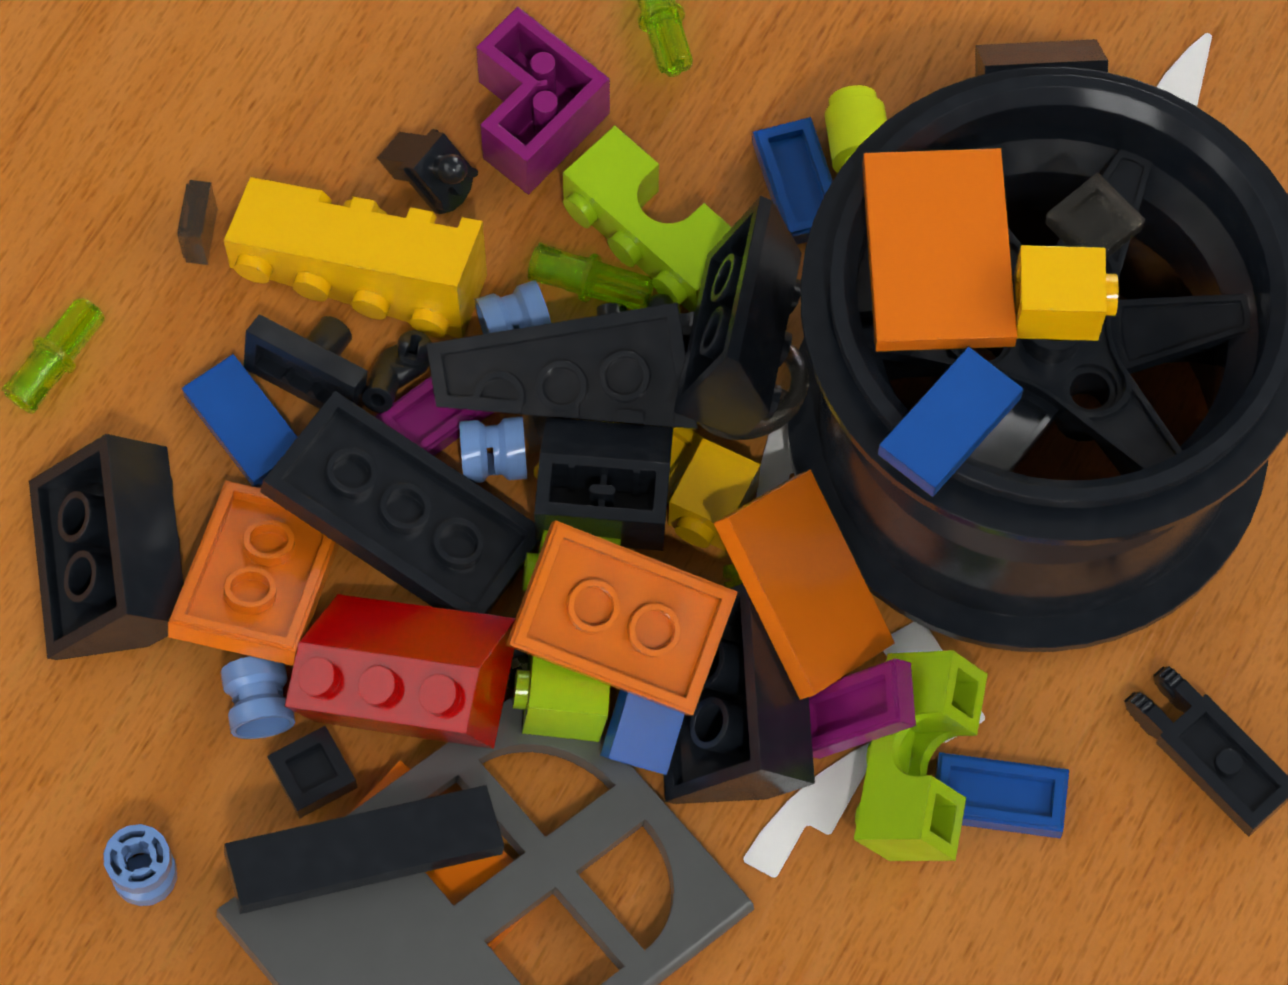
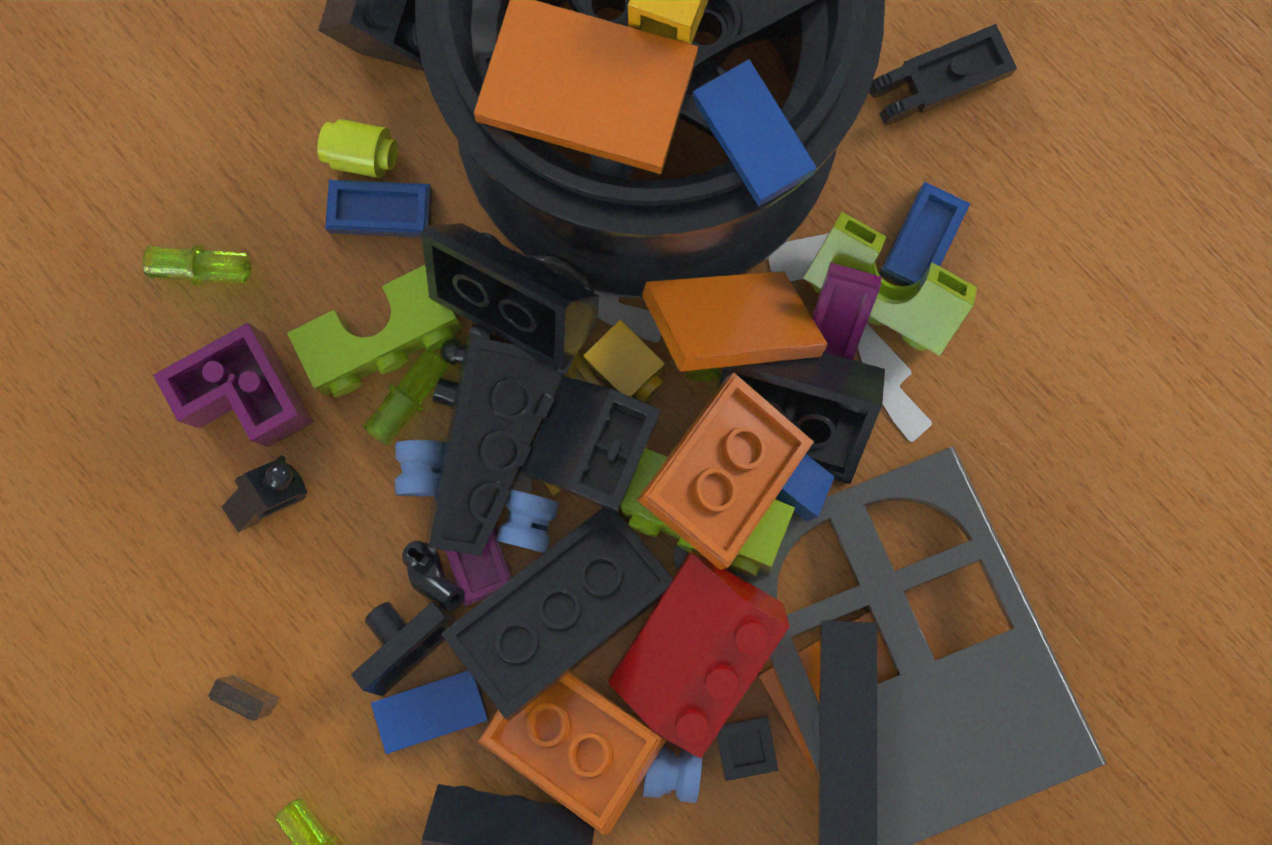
camera: 70 degrees left, 15 degrees up
(360, 255) = (322, 578): yellow wedge -> none

